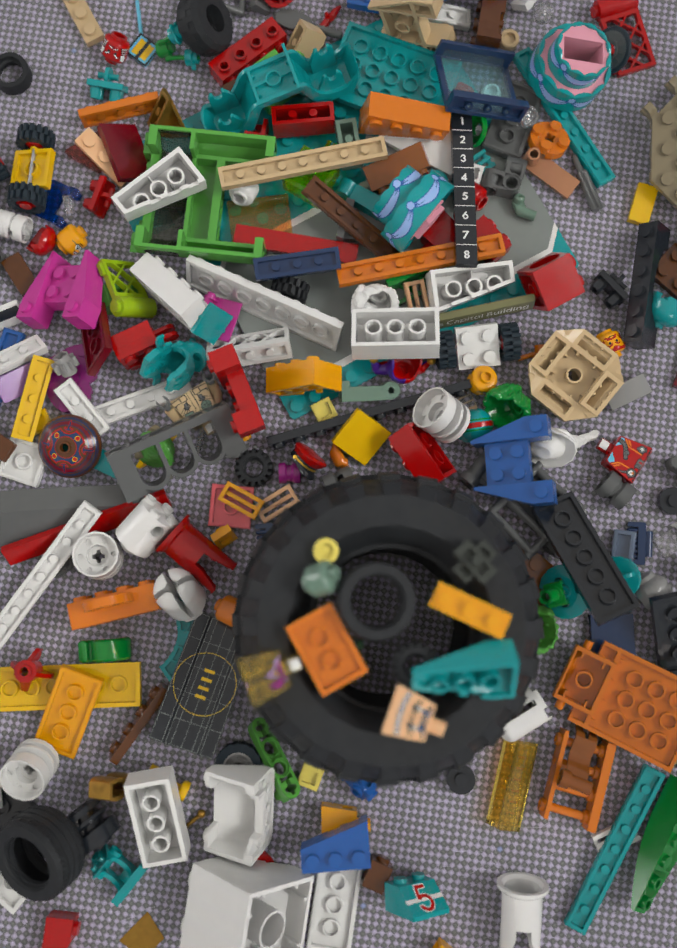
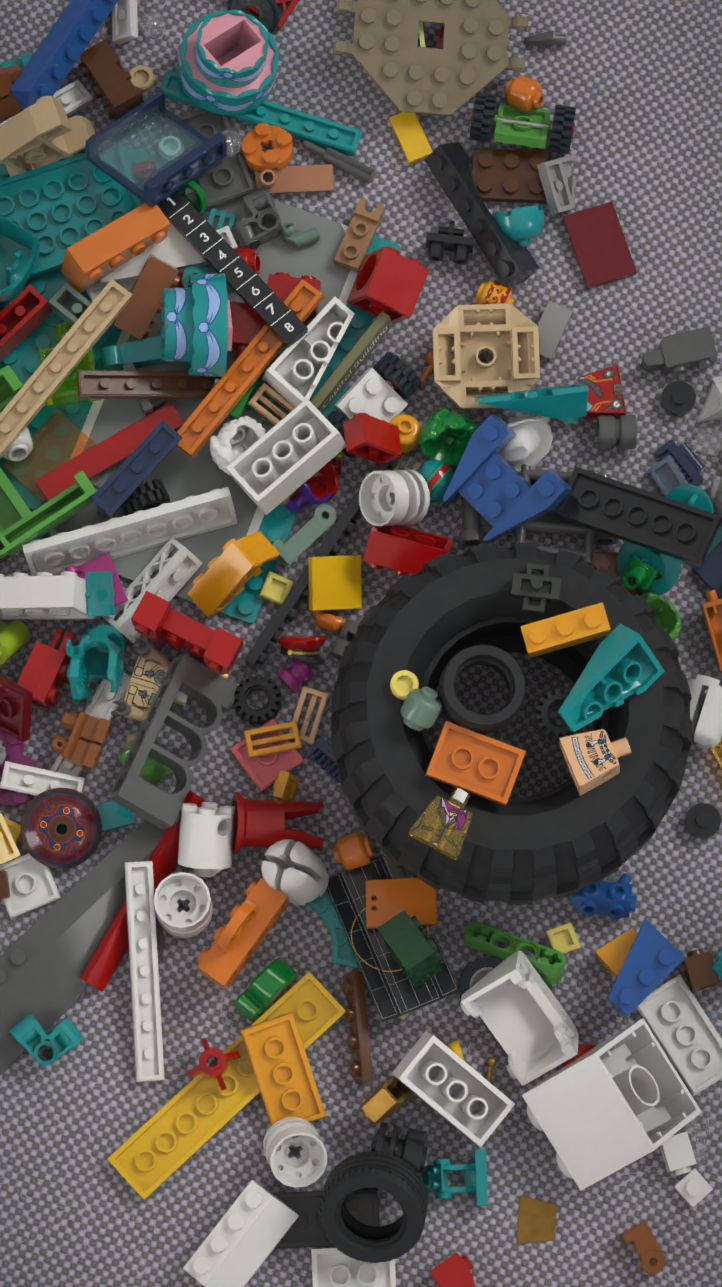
camera: 40 degrees left, 5 degrees down
(119, 404) = (84, 730): none -> dark orange hips
(202, 709) = (411, 948): none -> dark green brick
(222, 670) = (400, 895): none -> orange container
(458, 366) = (372, 438): none -> red brick
(559, 237) = (359, 236): none -> medium nougat plate
(594, 440) = (556, 402): none -> teal wedge

